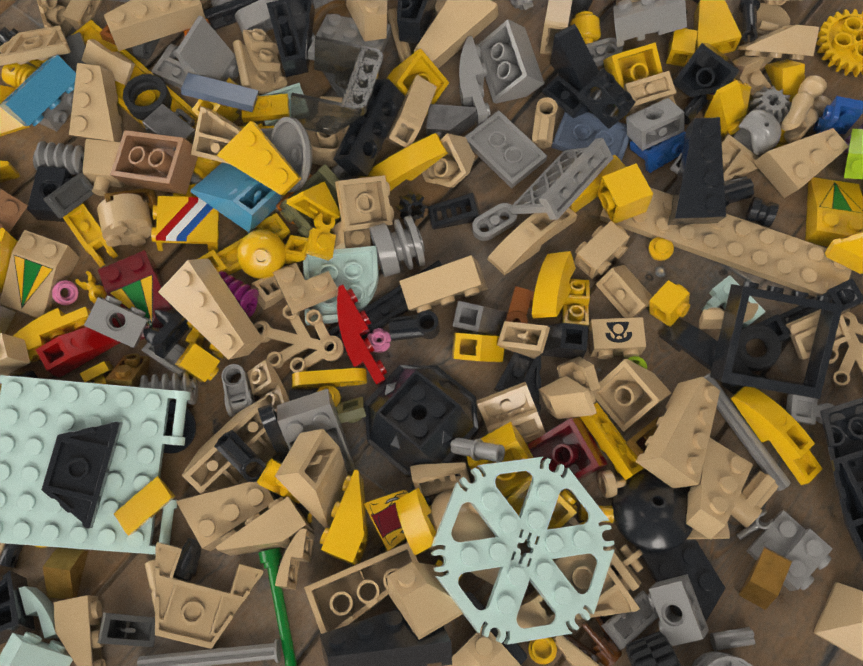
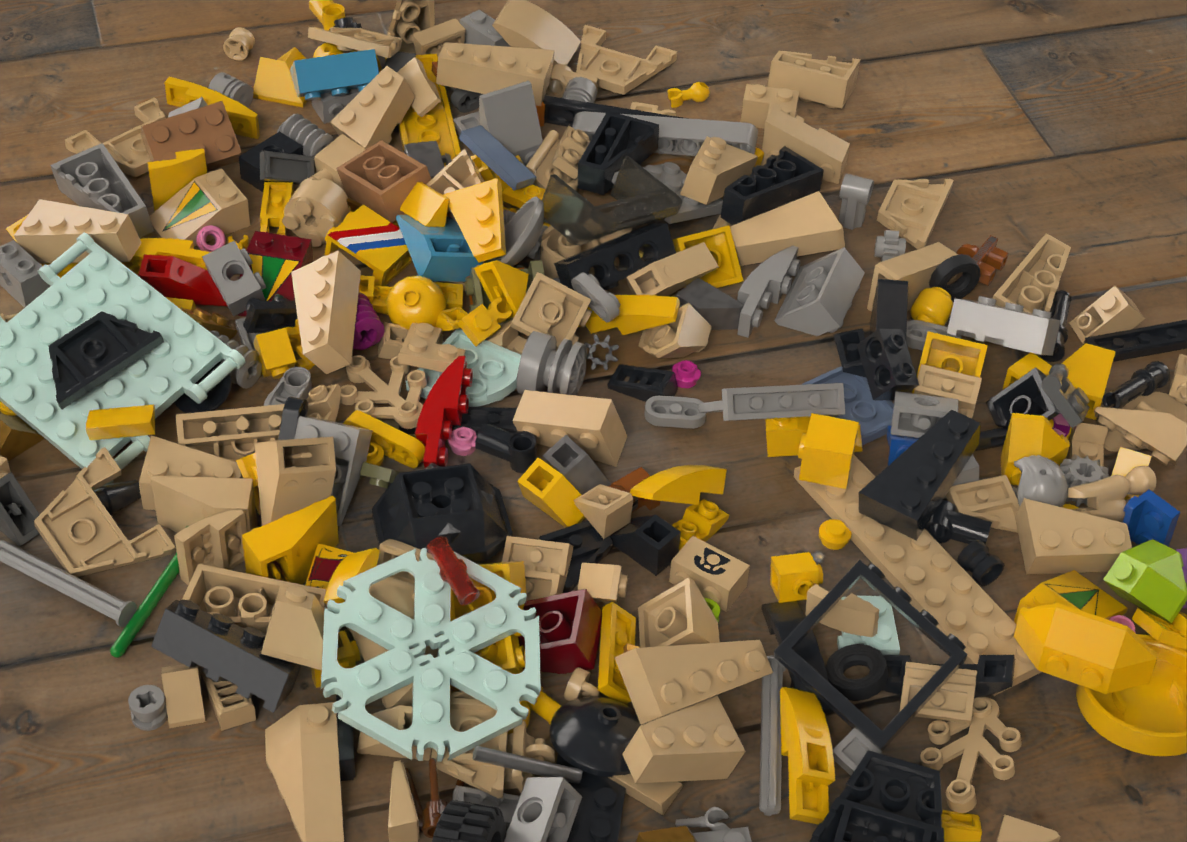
camera: 30 degrees right, 25 degrees down
(140, 84) = (429, 120): black tyre -> none
(207, 170) = (426, 206): none -> yellow slope
(240, 455) = (240, 424): black piece -> none
(393, 172) = (602, 303): none -> light grey plate
(478, 449) = (470, 551): light grey axle -> none
(479, 188) = (686, 374): none -> dark pink plate
(500, 484) = (453, 570): none -> clear red pin
(505, 149) = (745, 356): light grey plate -> none
(527, 239) = (693, 437): tan slope -> none
(542, 650) = (374, 778): yellow plate -> none
(544, 123) = (810, 360): tan piece -> none
(581, 371) = (638, 575): tan bracket -> none
(601, 249) = (764, 491): tan brick -> none
(624, 291) = (757, 540): tan panel -> none
(639, 578) = (526, 764): none -> flat silver bar
(729, 51) = (1069, 401): none -> dark grey plate
(753, 497) = (727, 792): tan piece -> none

